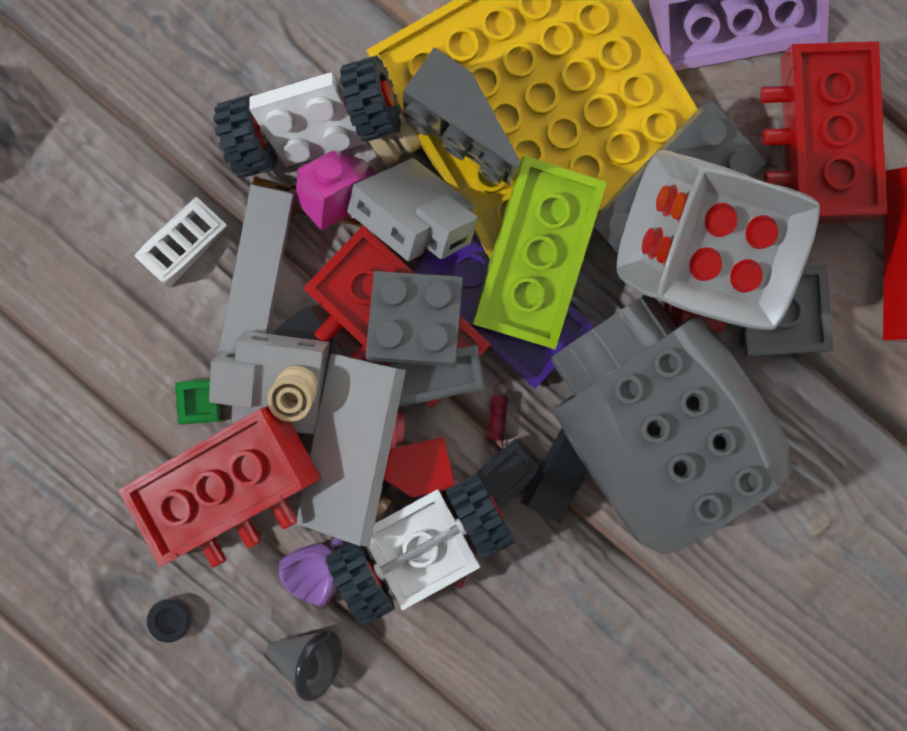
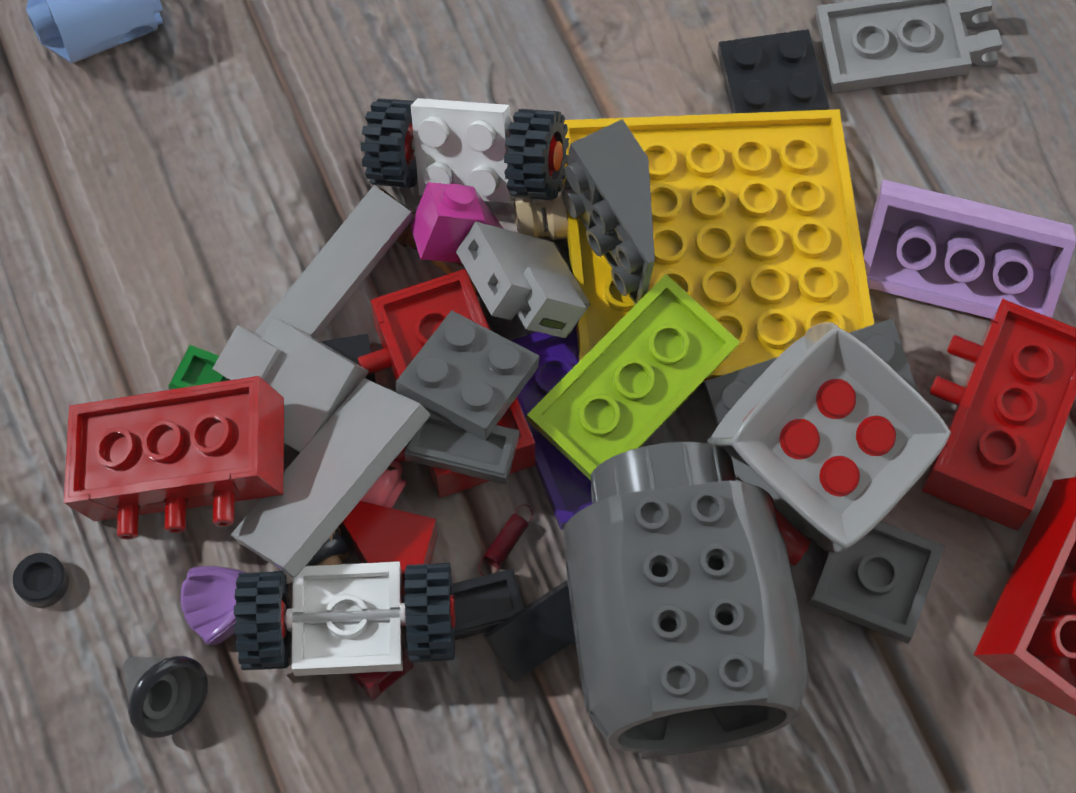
camera: 25 degrees right, 20 degrees down
(181, 263) = (265, 237): white slope -> none
(298, 385) = (312, 388): tan wheel -> none

